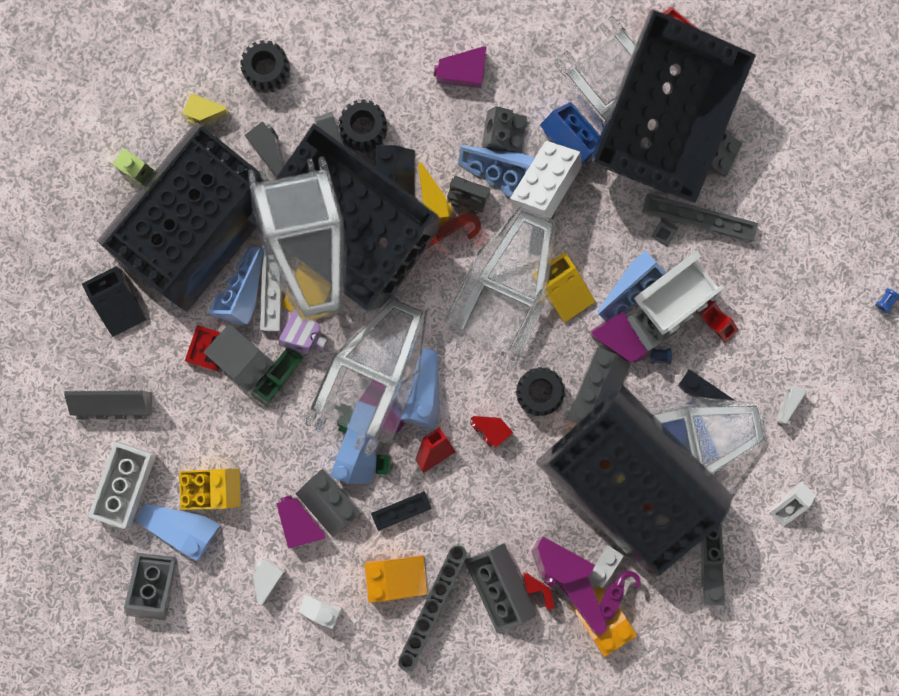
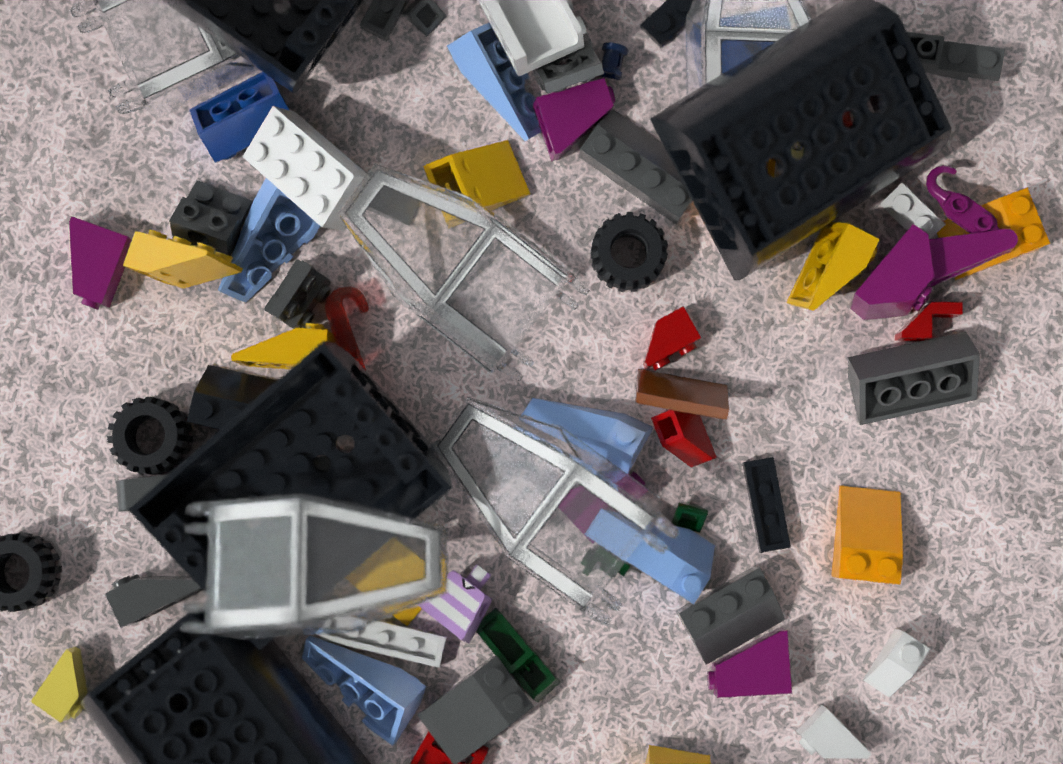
camera: 80 degrees left, 0 degrees up
(425, 614) = (937, 490): dark grey beam -> none
(458, 442) = (682, 394): none -> dark orange tile
(471, 115) = (176, 261): none -> yellow slope
(562, 521) = (834, 260): none -> yellow slope

